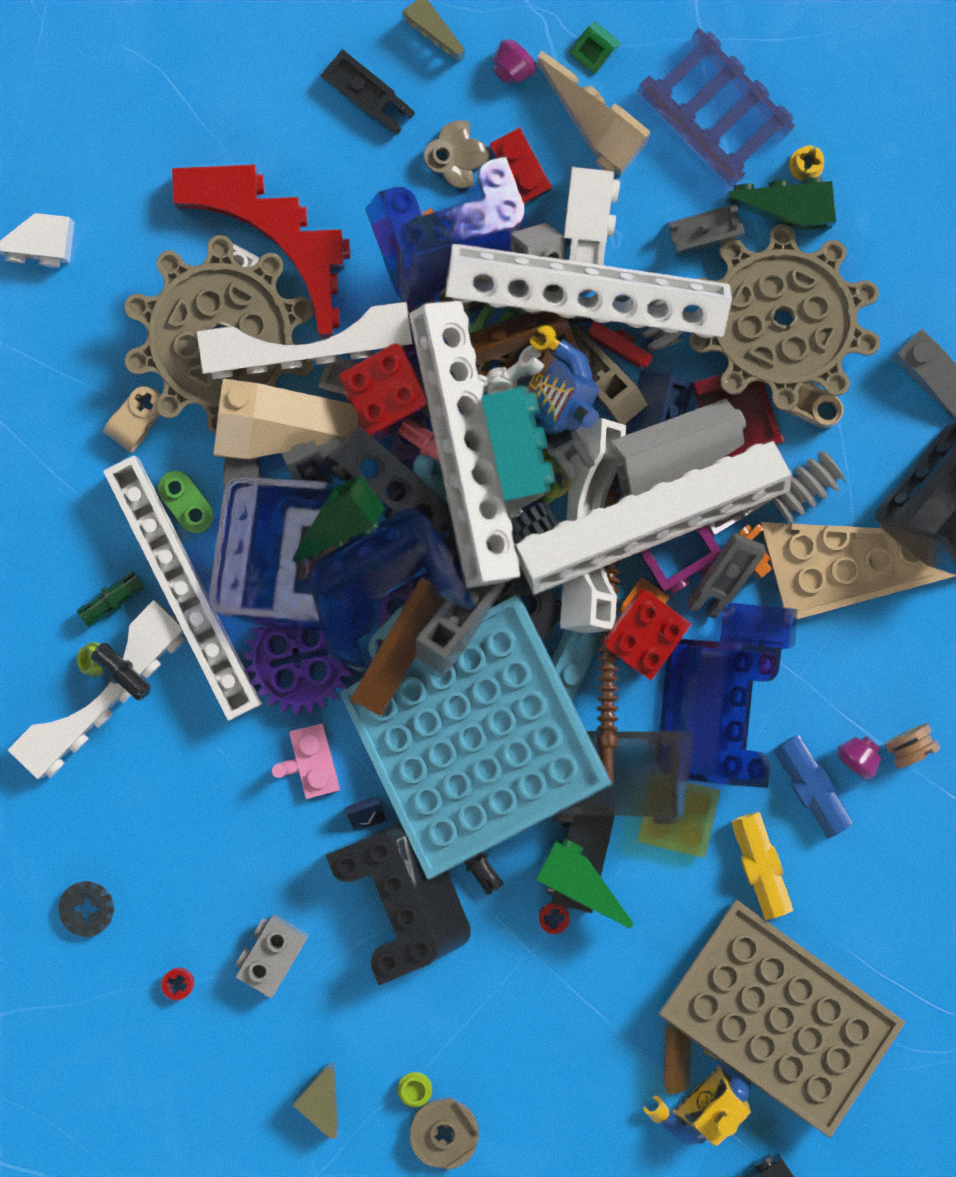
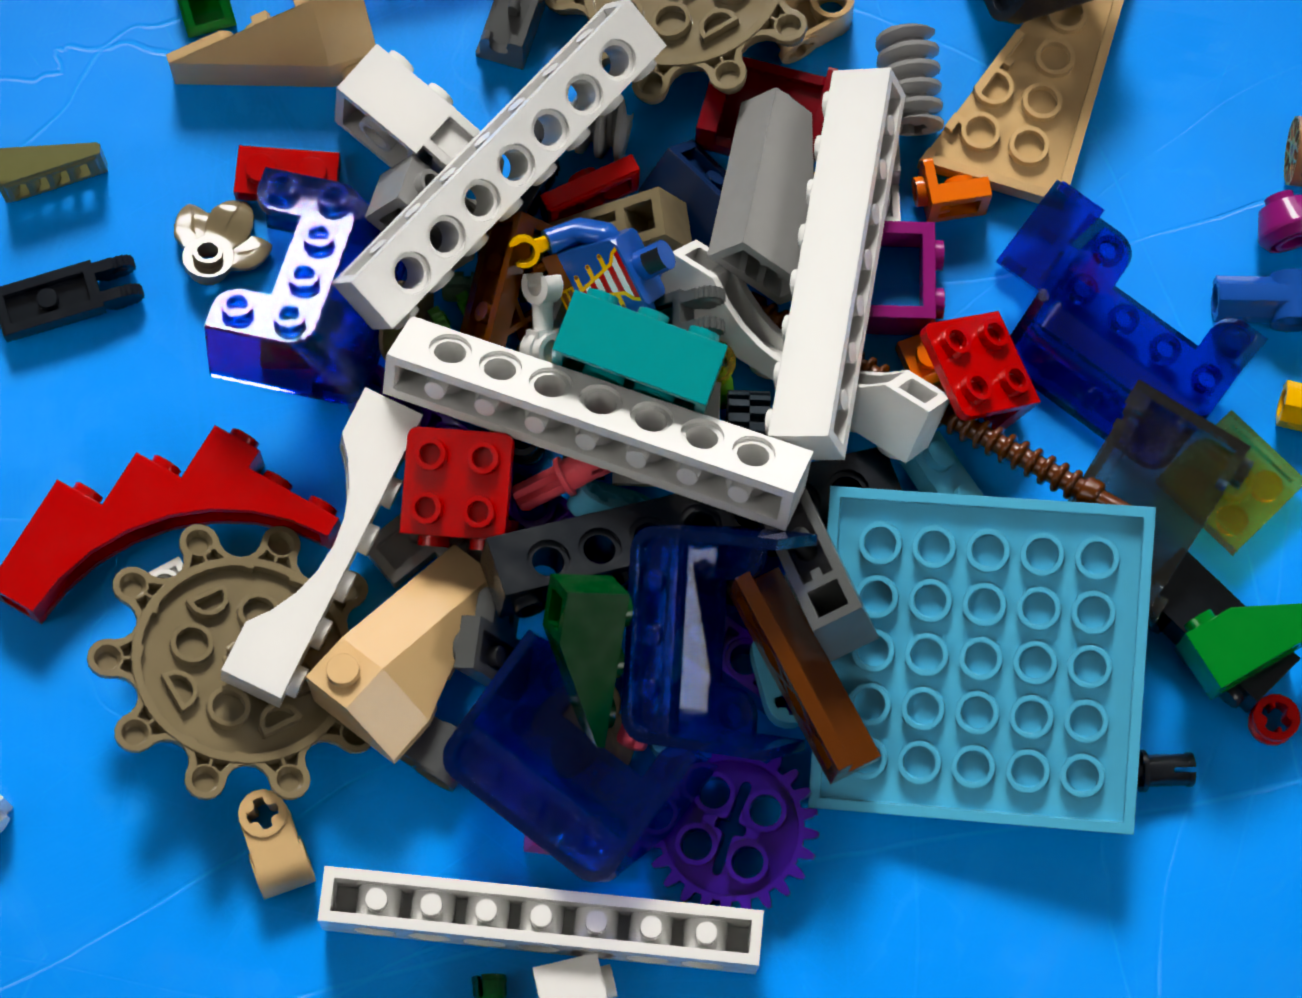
camera: 60 degrees left, 15 degrees down
(186, 501) = (428, 849): bright green plate -> none
(312, 761) = (877, 903): bright pink plate -> none
(365, 813) = (989, 874): dark blue slope -> none
(421, 910) = (1155, 873): black windscreen -> none
(512, 62) = (154, 101): magenta cone -> none
(727, 574) = (964, 233): dark grey hinge -> none

